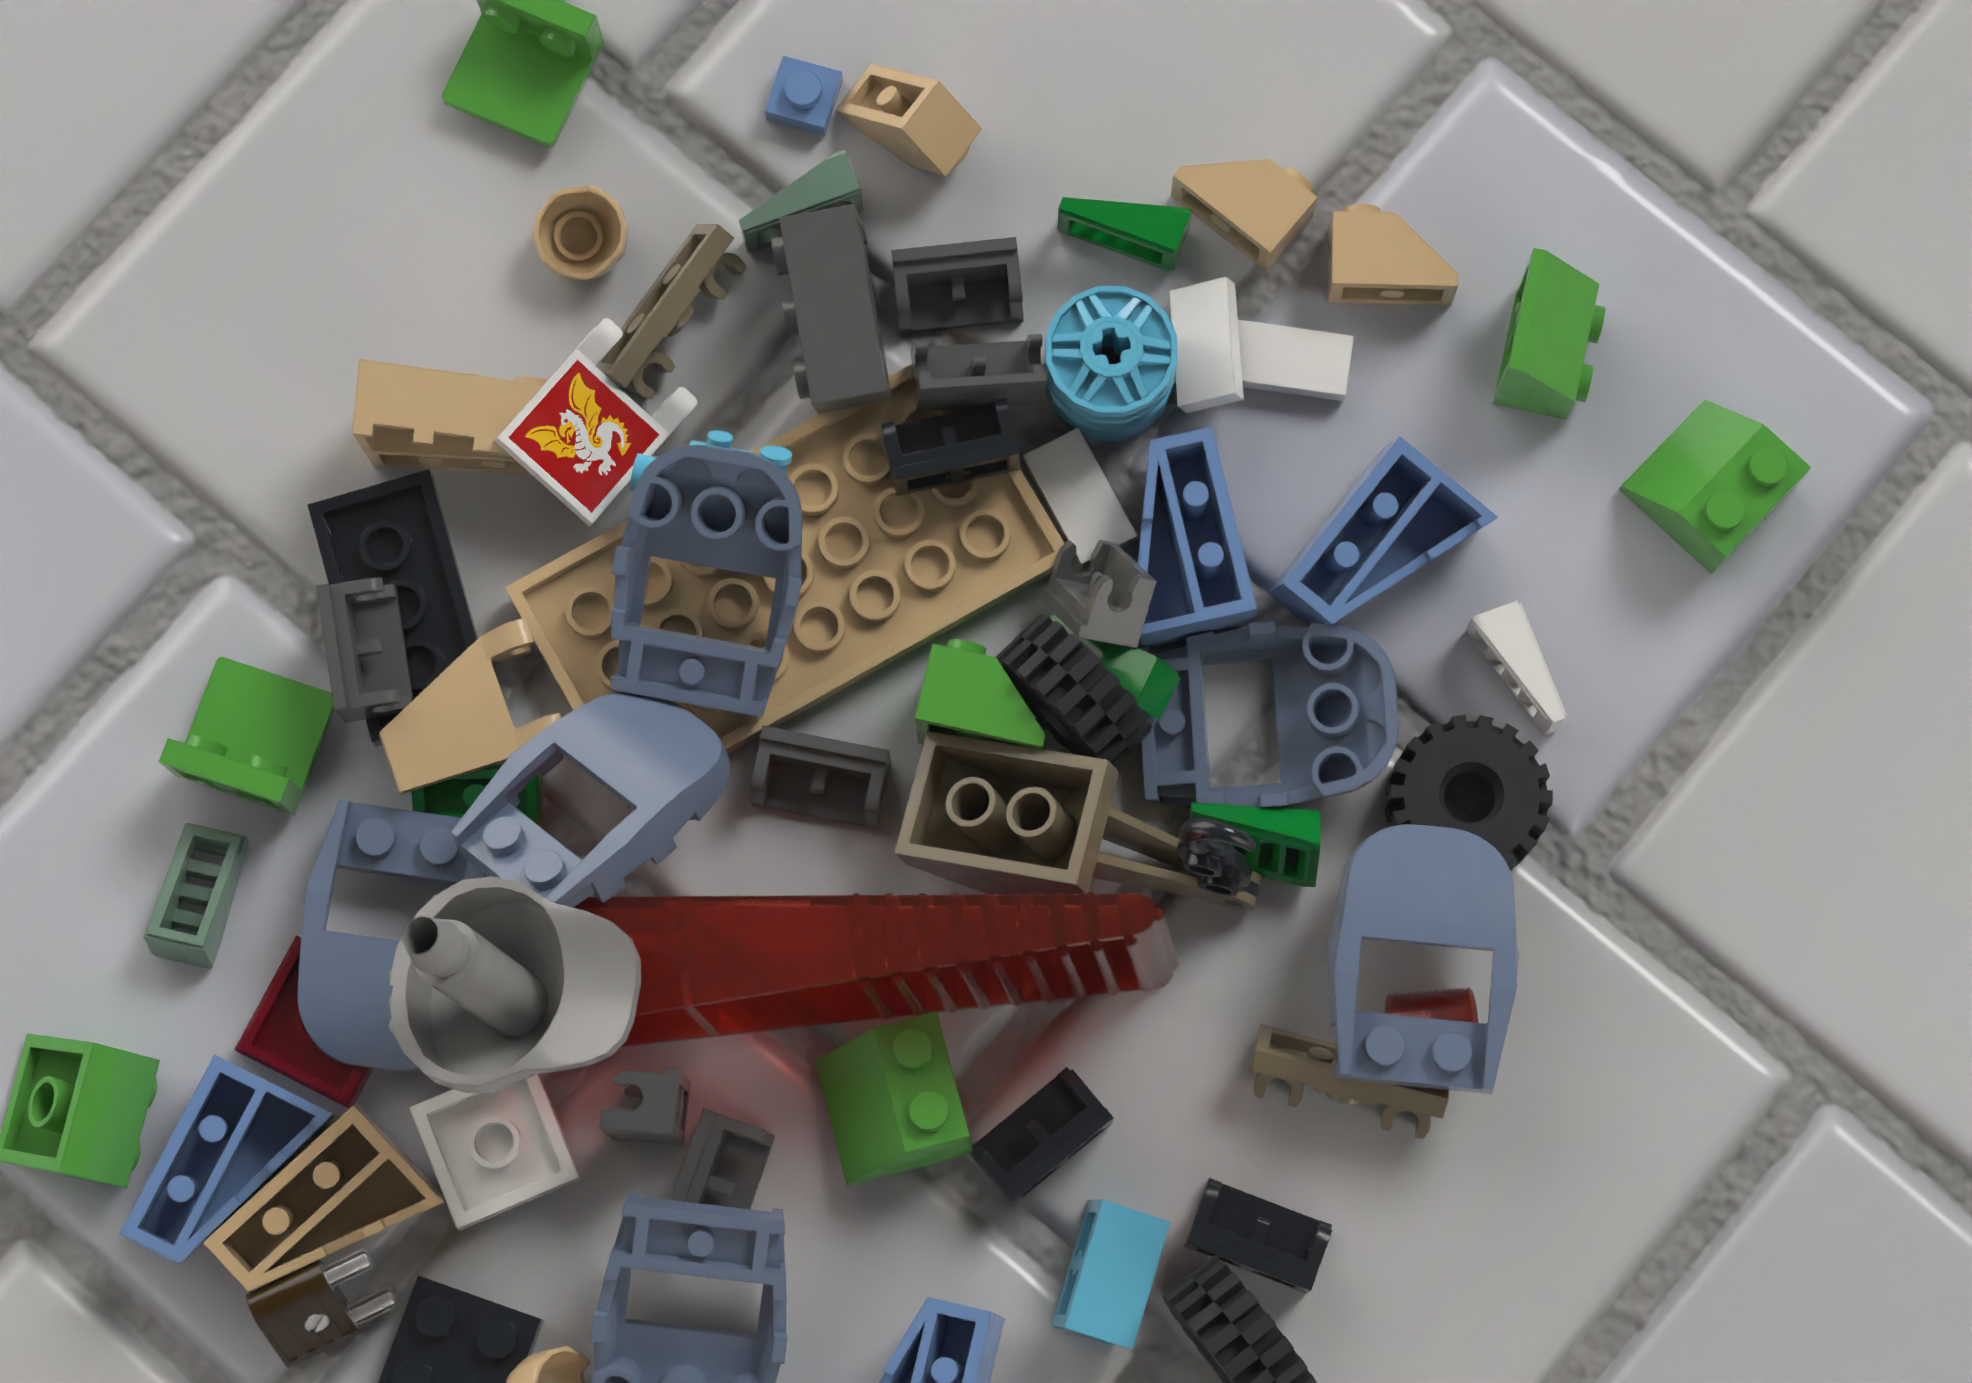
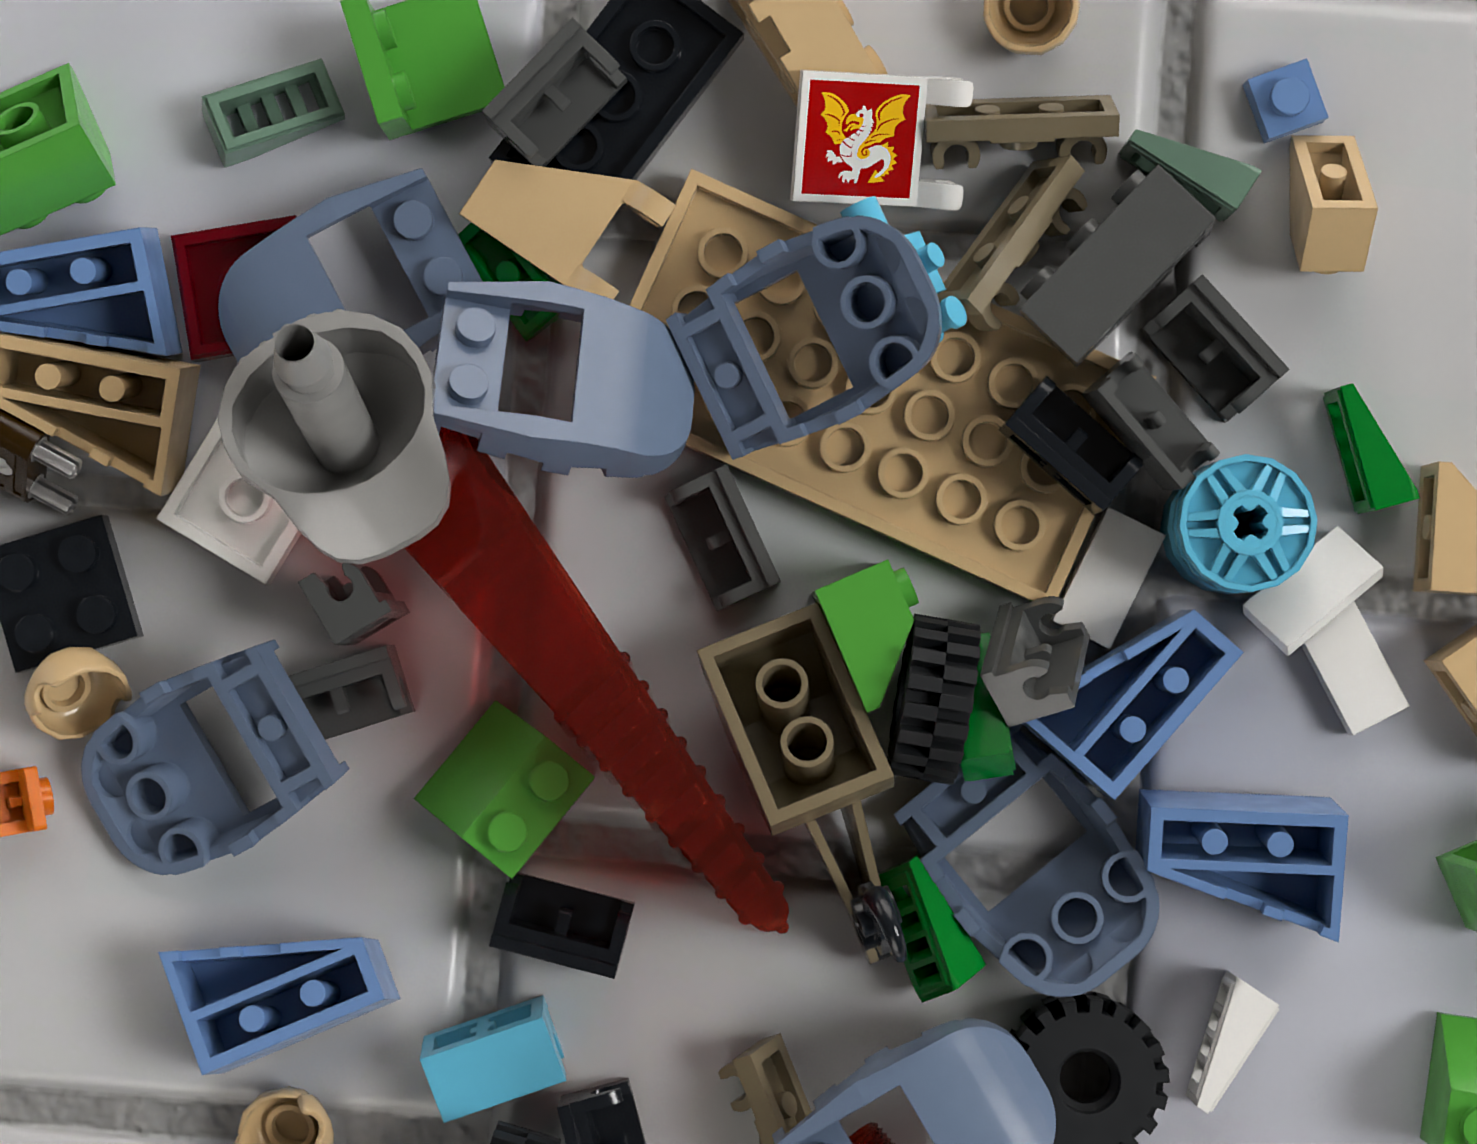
camera: 55 degrees right, 10 degrees up
(751, 374) = (1013, 238): none -> dark tan plate

